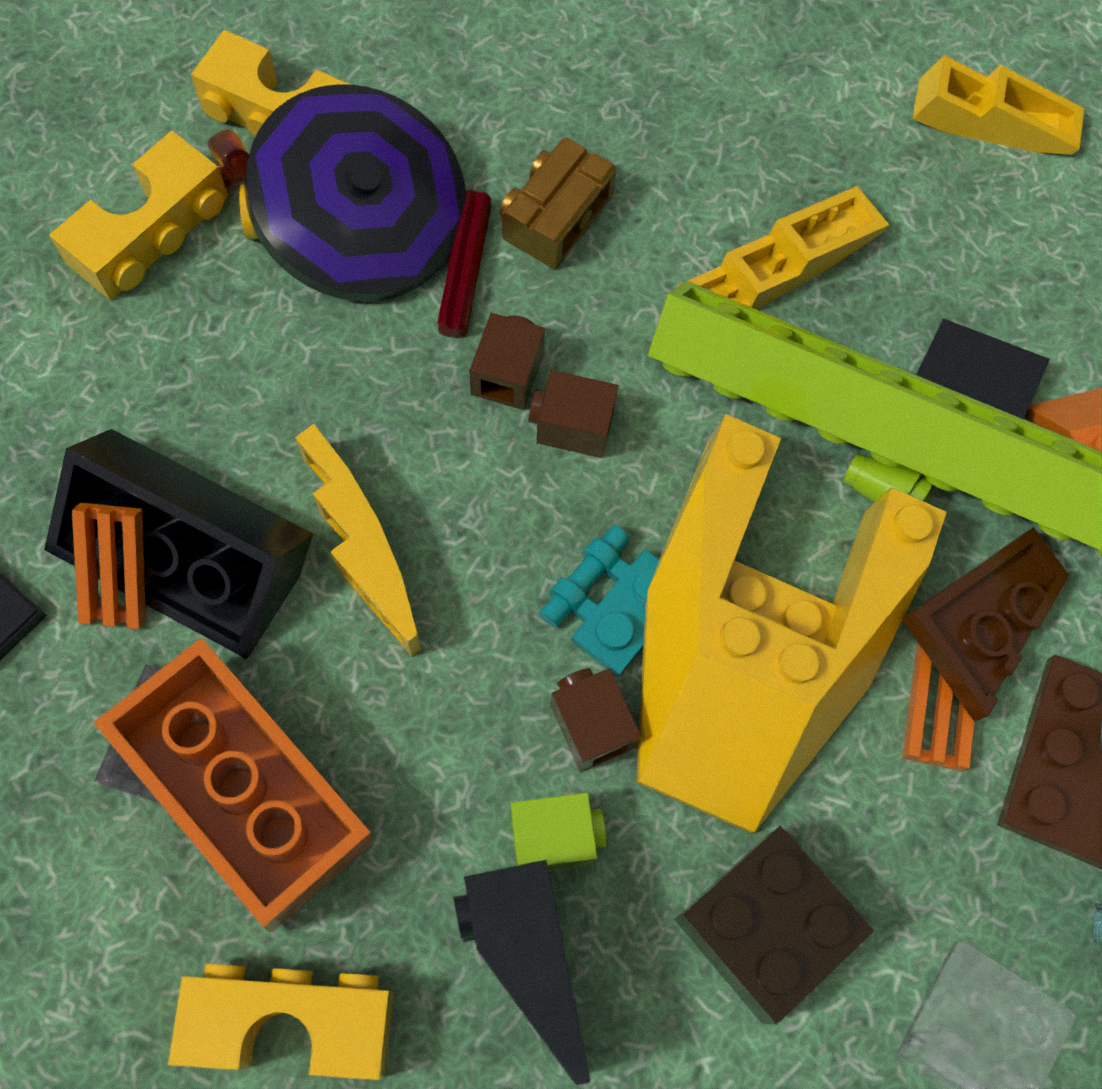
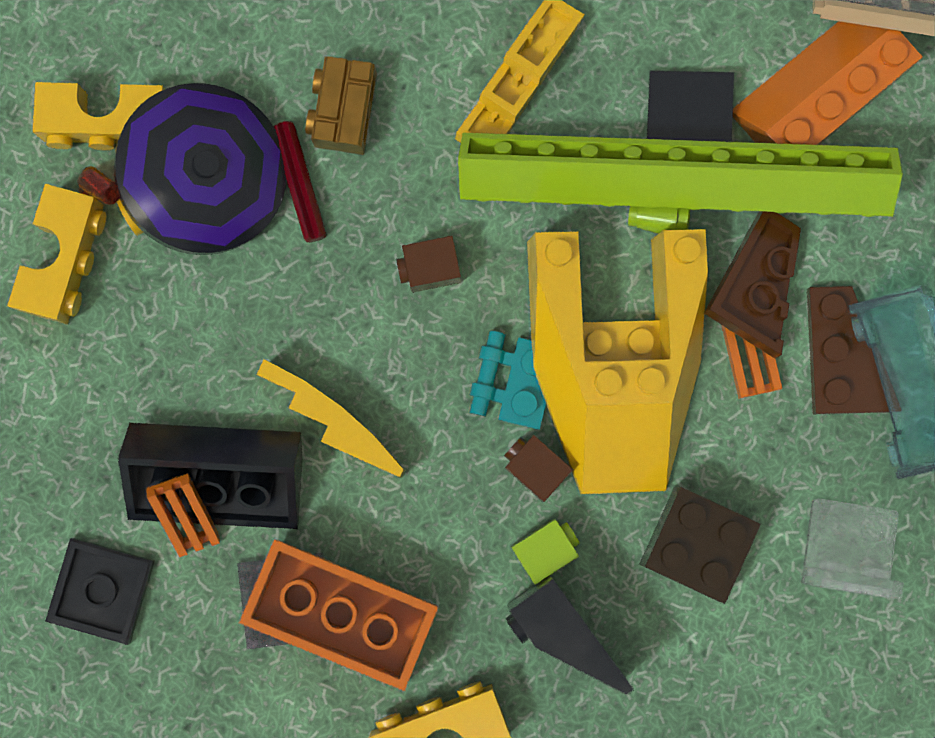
camera: 20 degrees left, 15 degrees up
(507, 360) = (366, 245): reddish brown brick -> none

